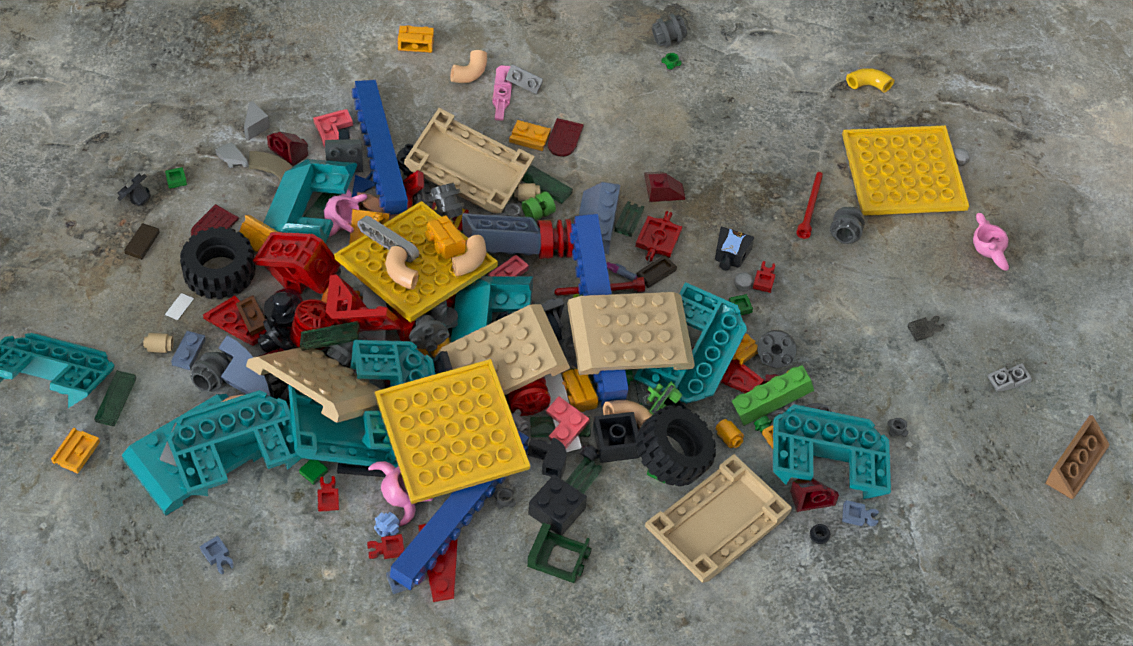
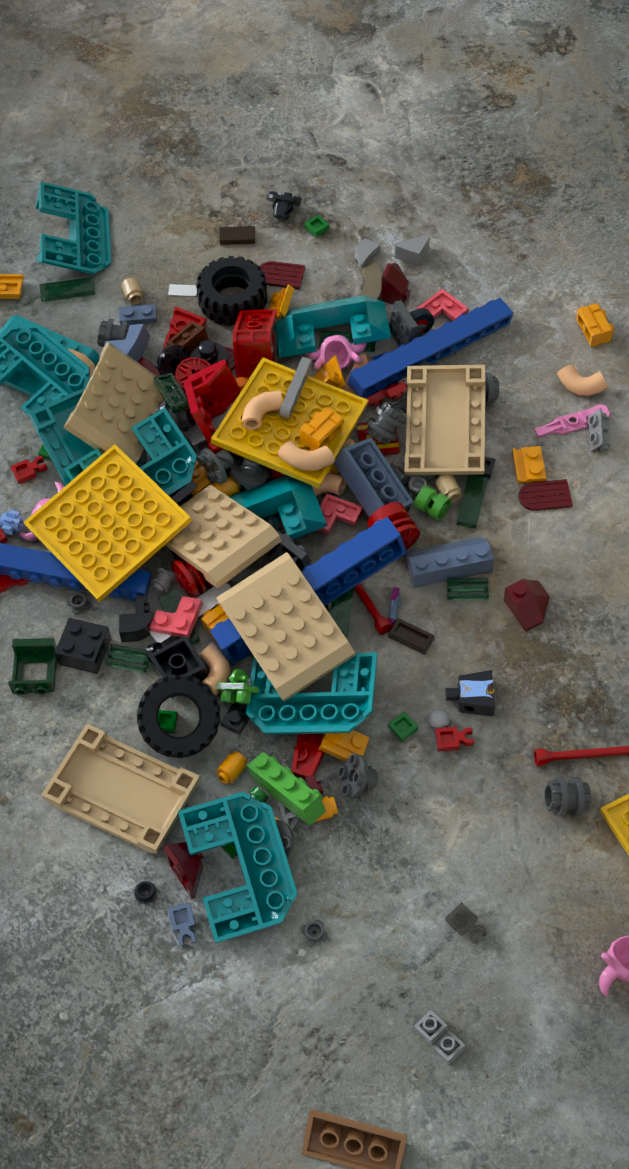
camera: 75 degrees right, 5 degrees up
(658, 236) = (455, 621): red plate -> none

